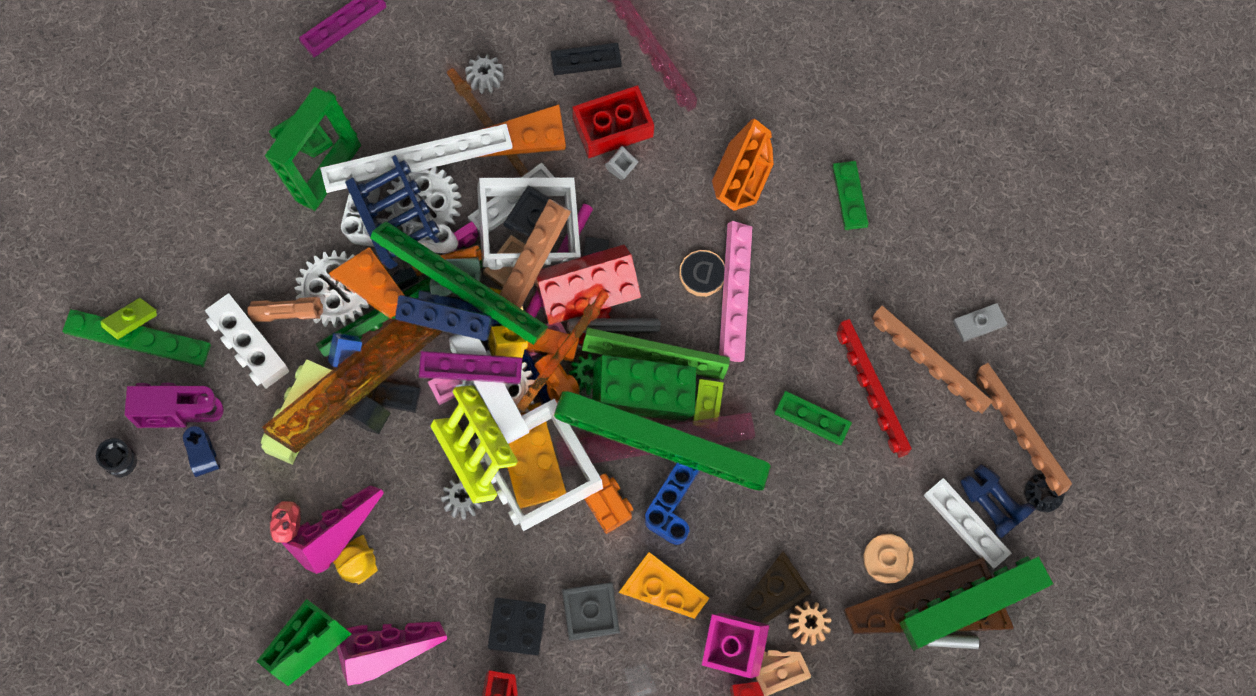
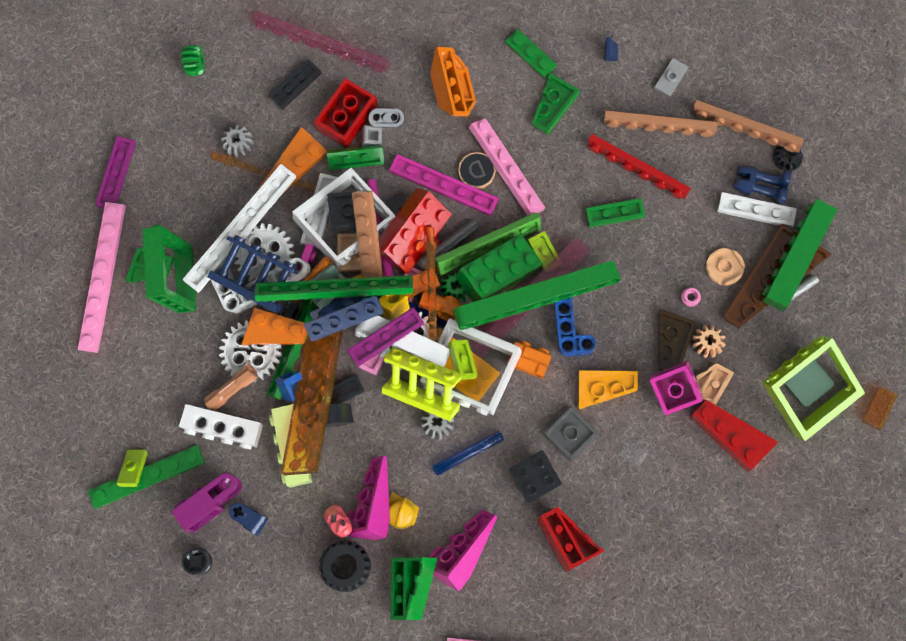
camera: 25 degrees left, 5 degrees up
(249, 112) = (101, 277): none -> bright pink plate
(269, 587) = (327, 563): none -> black tyre
(470, 552) = (468, 453): none -> clear blue axle
(533, 449) = (462, 359): none -> lime plate
(589, 172) = (355, 157): none -> green plate
(649, 153) = (384, 117): none -> plate
(657, 263) = (444, 185): none -> dark pink plate
(832, 558) = (697, 297): none -> bright pink plate
(839, 260) = (554, 103): none -> green wing
(937, 249) = (610, 50): none -> dark blue slope

